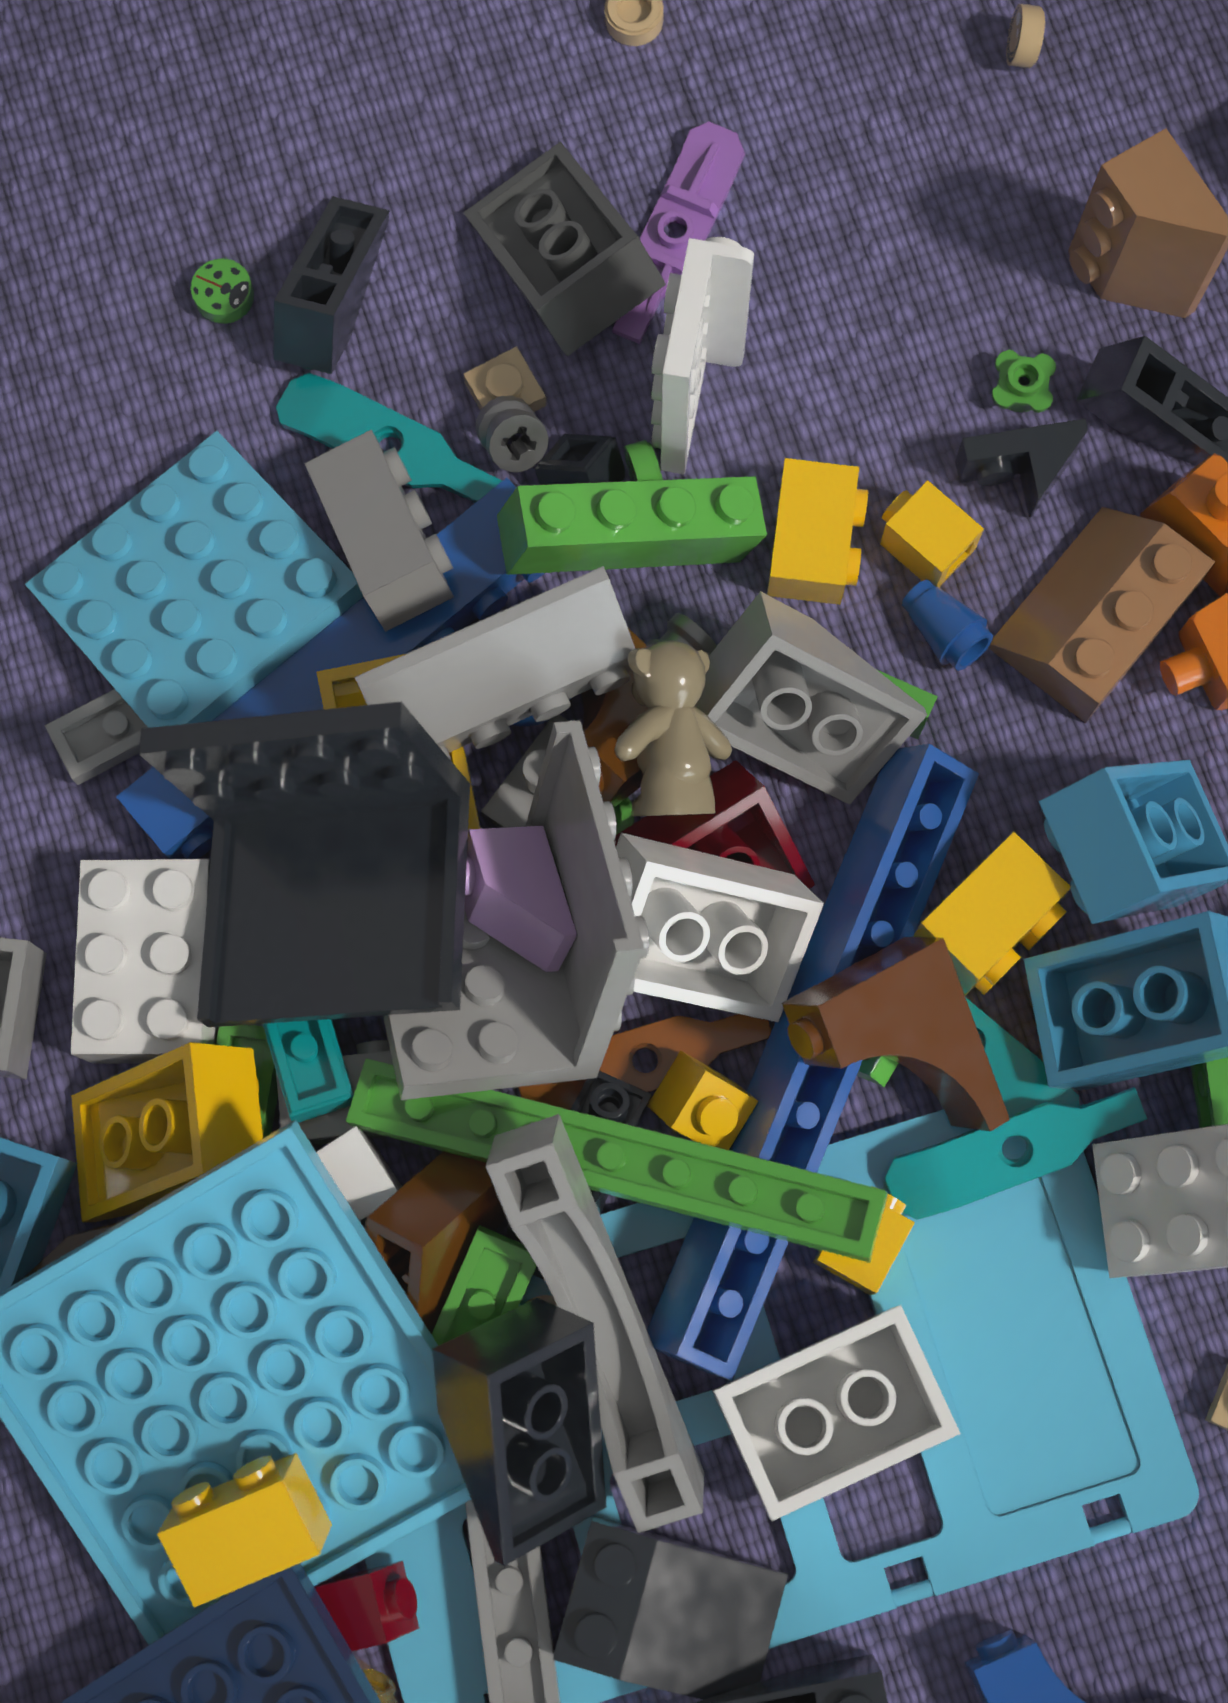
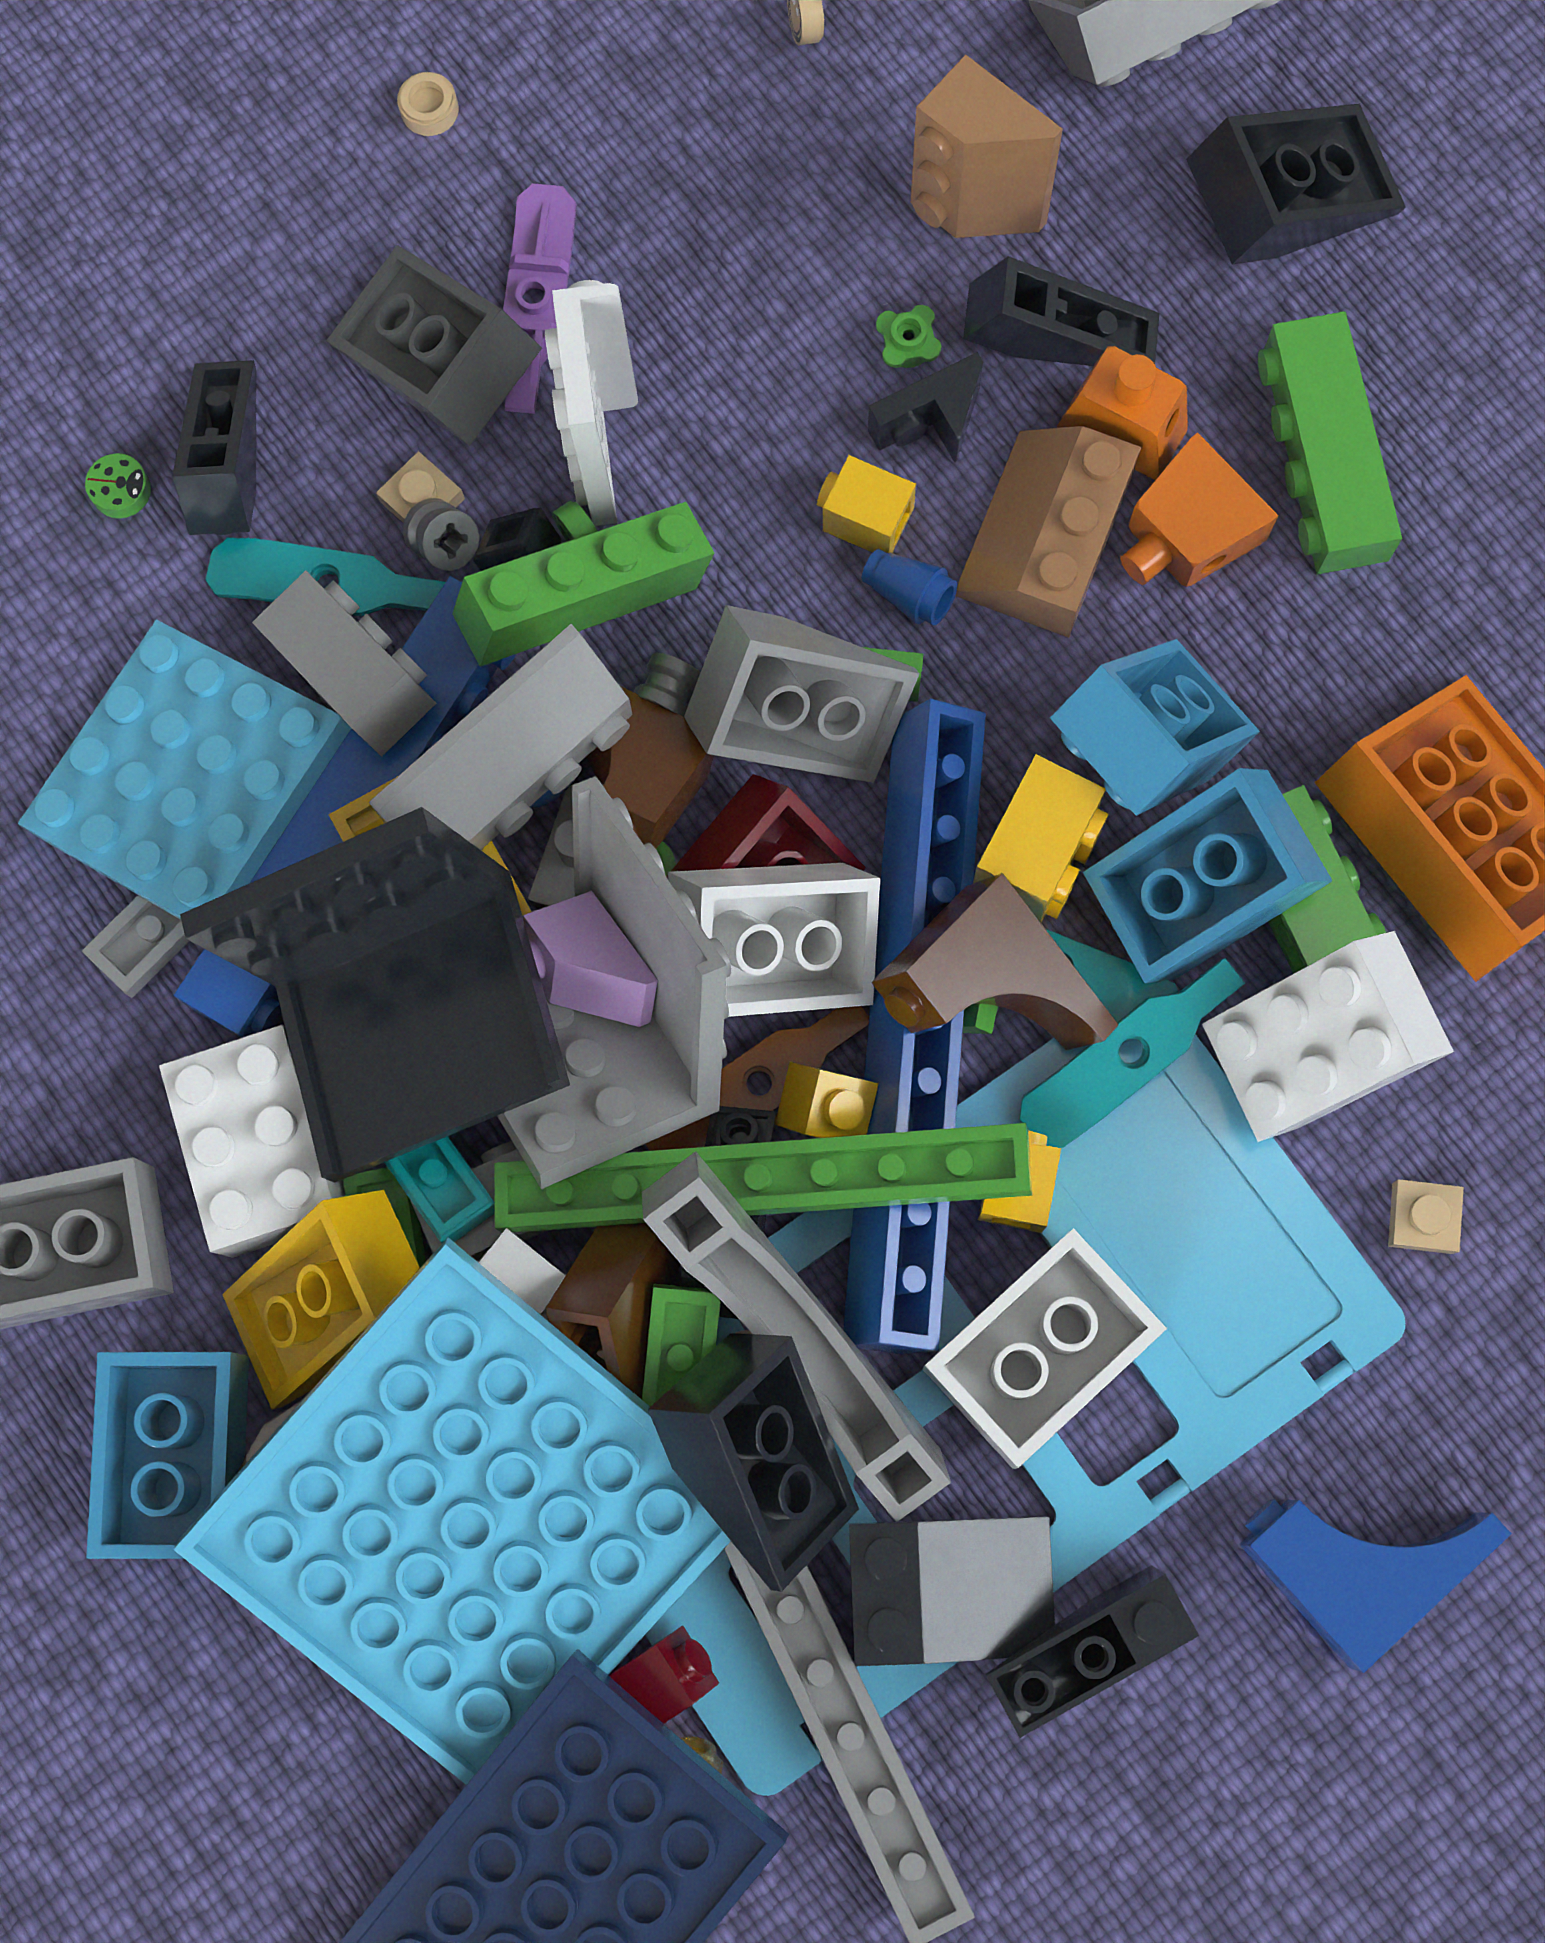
camera: 15 degrees left, 0 degrees up
(244, 1527) = (523, 1640): yellow brick -> none
(672, 734) = (686, 766): dark tan piece -> none
(815, 531) = (758, 537): yellow brick -> none

